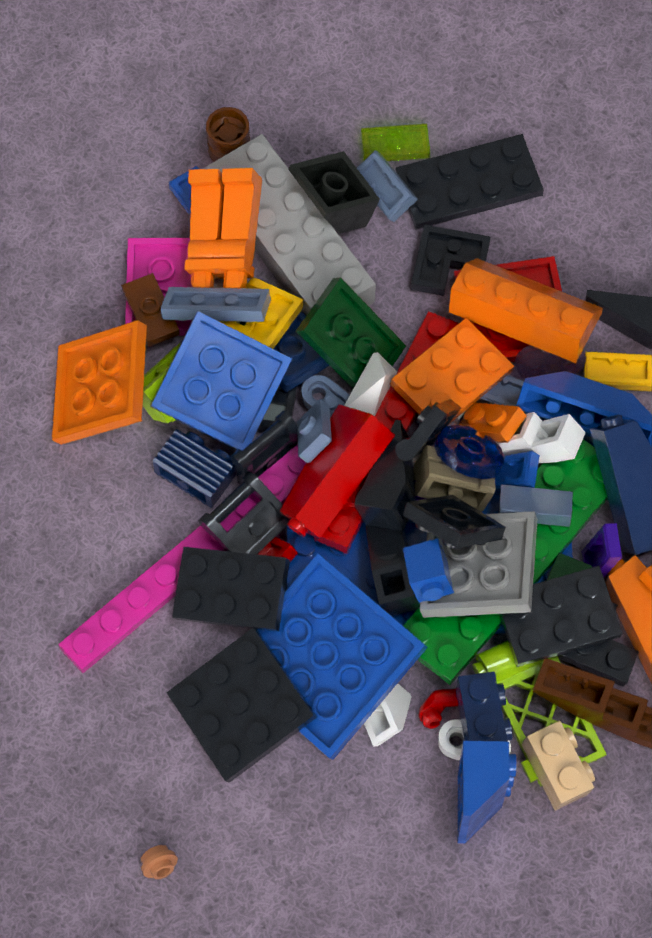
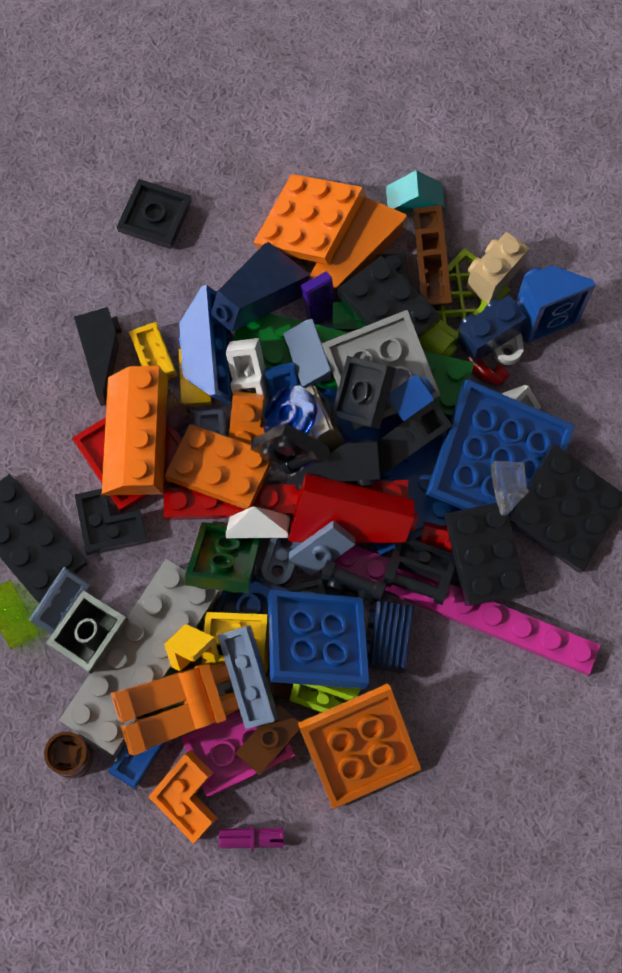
camera: 115 degrees left, 5 degrees up
(70, 265) = (251, 838): none -> magenta axle
(143, 215) = (177, 796): none -> orange plate
(271, 261) = (189, 645): none -> yellow panel
(288, 640) = (508, 484): none -> clear slope

